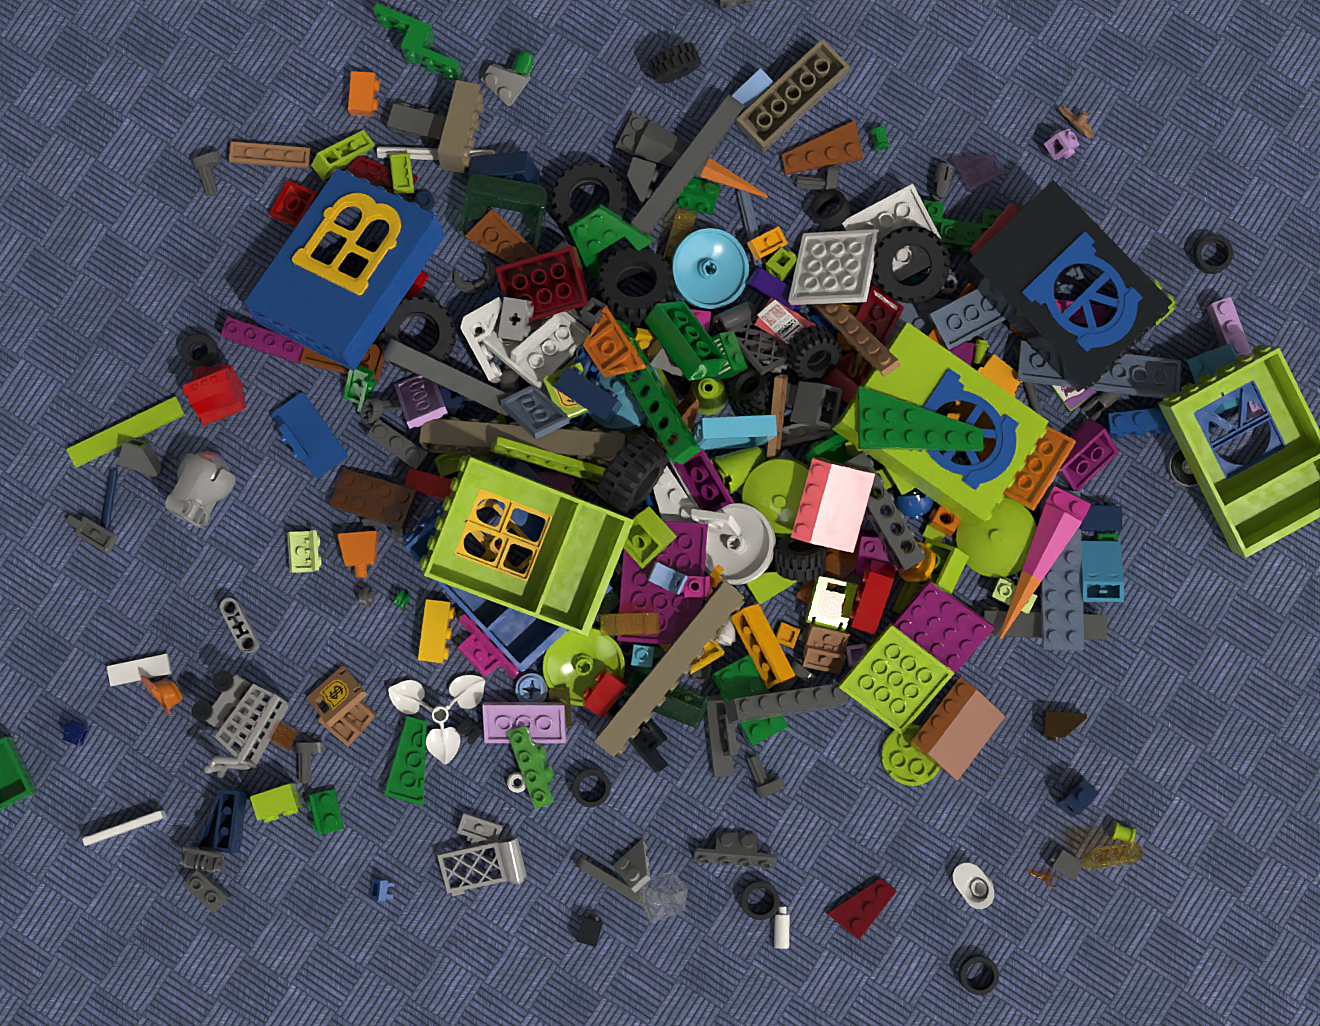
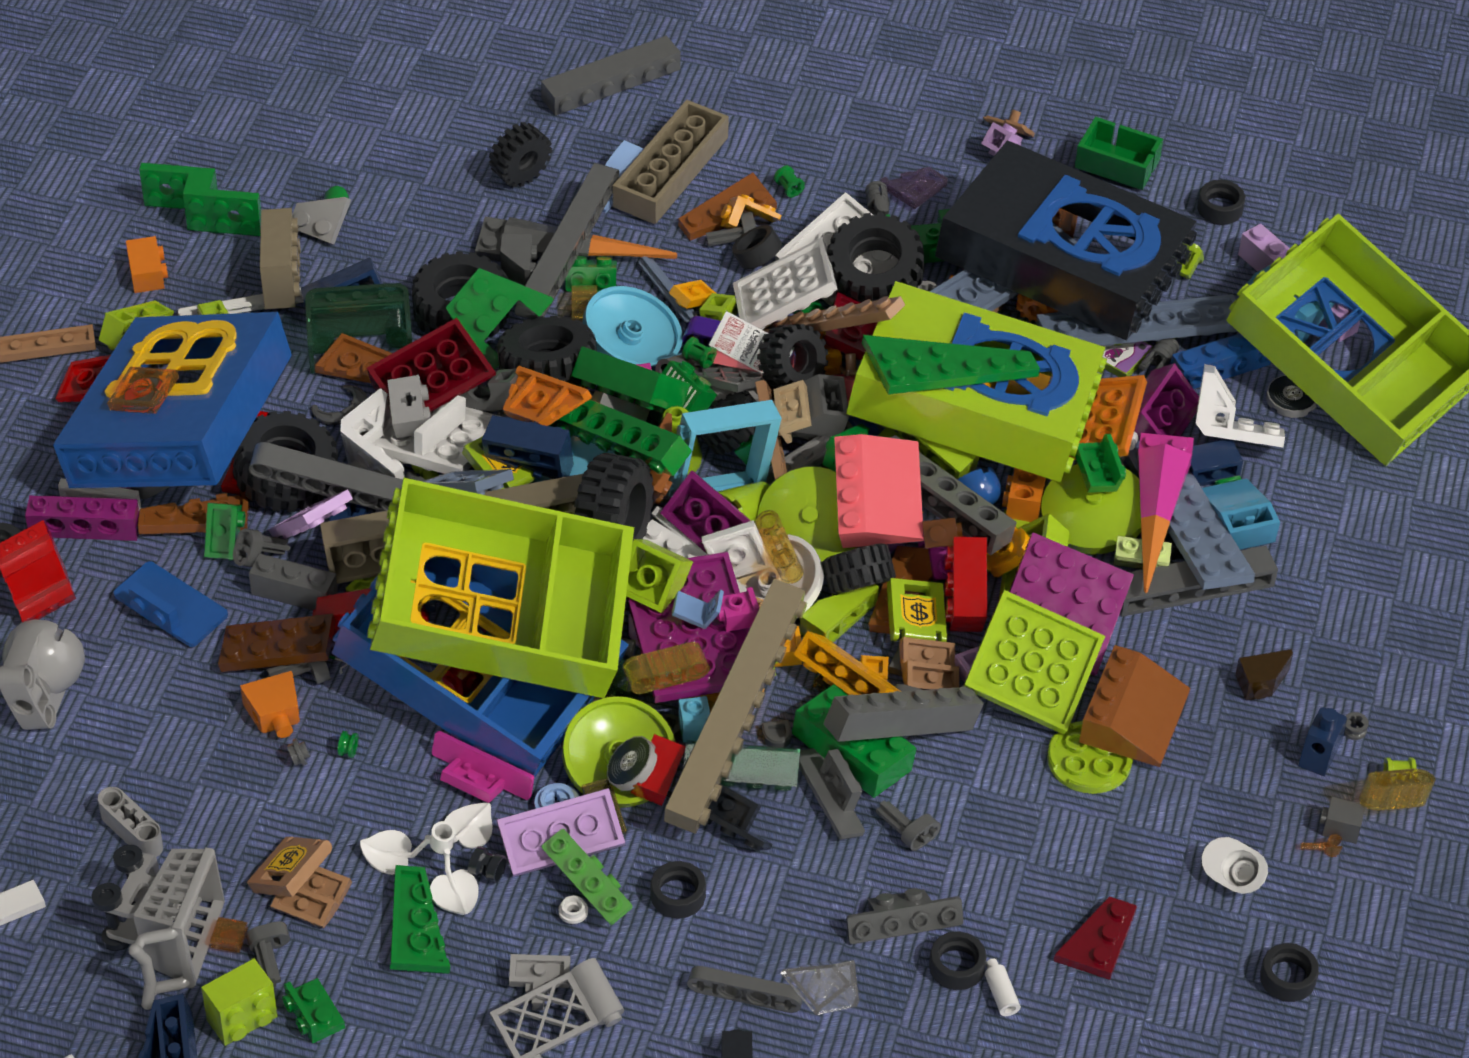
camera: 20 degrees left, 35 degrees down
(165, 692) = (35, 922): orange piece -> none
(303, 551) = (198, 722): yellowish green bracket -> none
(317, 274) = (143, 390): none -> clear orange tile
(416, 123) = (223, 277): dark grey brick -> none
(436, 631) = (406, 767): yellow brick -> none
(585, 690) = (631, 763): none -> tile
(634, 866) = (771, 959): light grey wing -> none
(712, 652) = (775, 707): yellow plate -> none
(726, 634) = (794, 679): white cone -> none
(747, 313) = (699, 352): none -> green bush
(753, 519) = (786, 559): none -> clear yellow beam
(794, 409) = (793, 408): none -> tan bracket
(828, 162) = (732, 212): none -> light orange bracket
(868, 551) = (941, 532): none -> reddish brown bracket
(1008, 519) = (1100, 465): none -> green bracket
(1115, 785) = (1358, 719): none -> dark grey bush
(1129, 494) = (1216, 399): none -> white bracket
(1148, 187) = (1126, 162): none -> green piece

